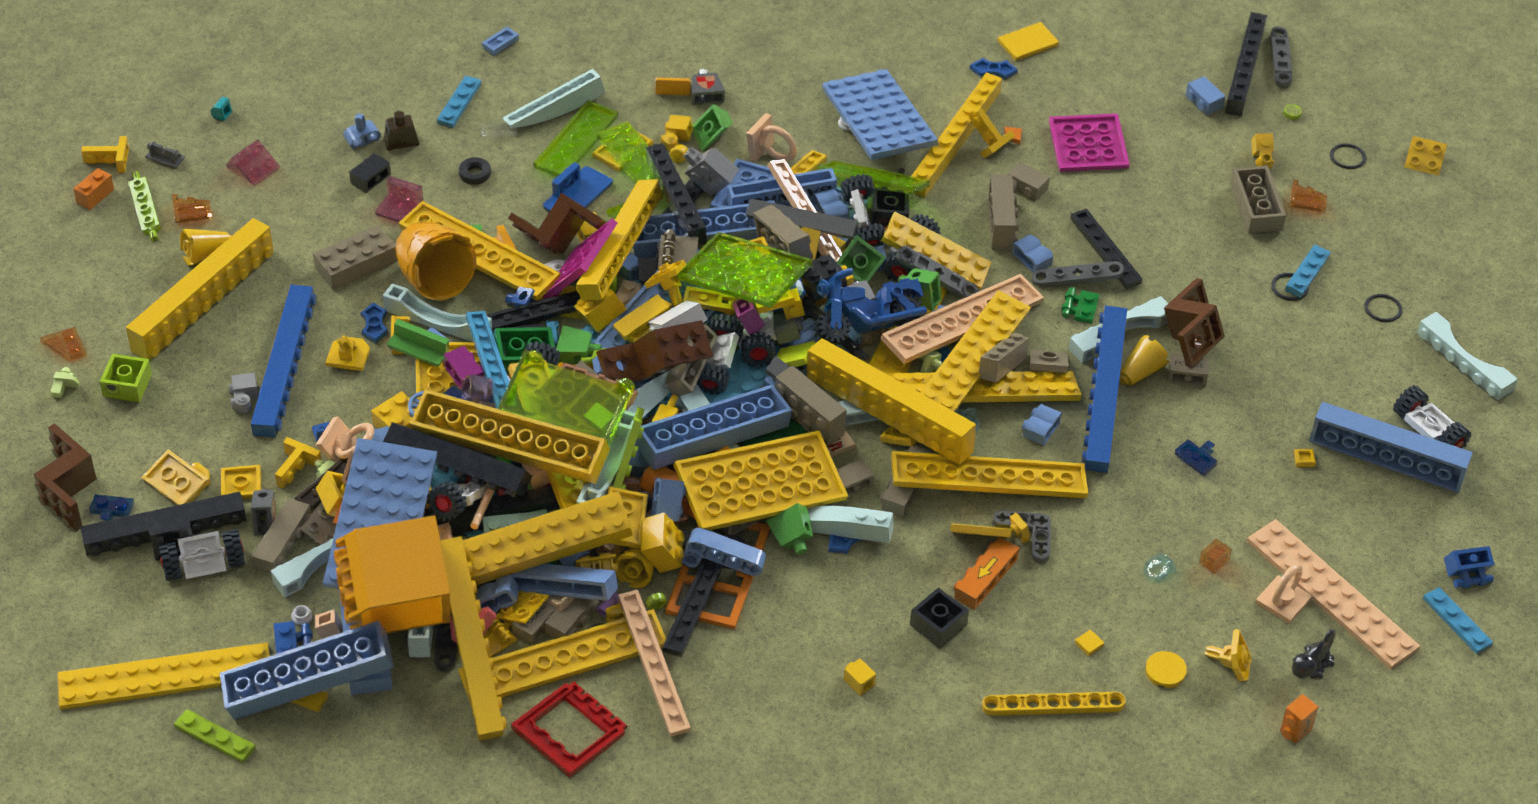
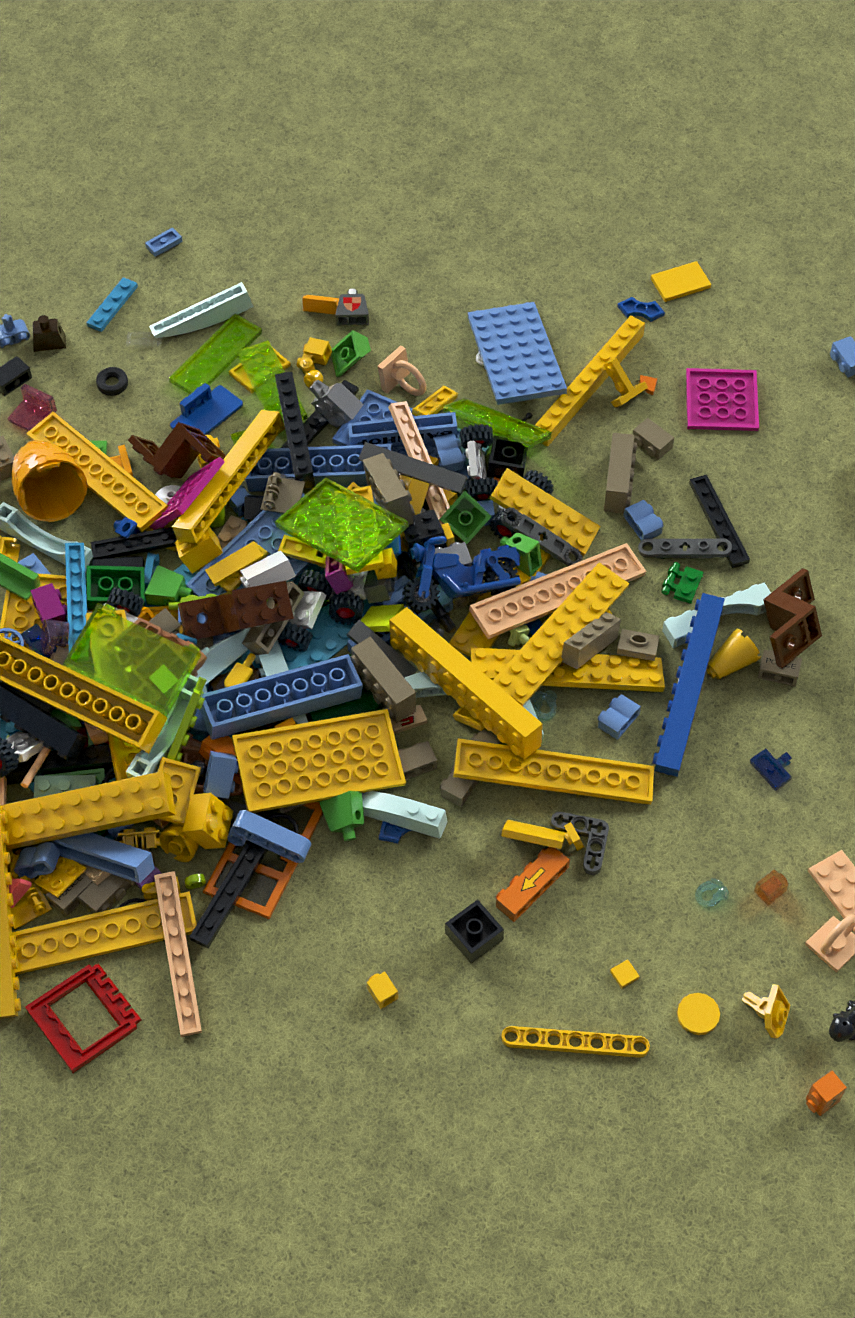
camera: 10 degrees right, 10 degrees up
(668, 278) = (266, 527): yellow piece -> none

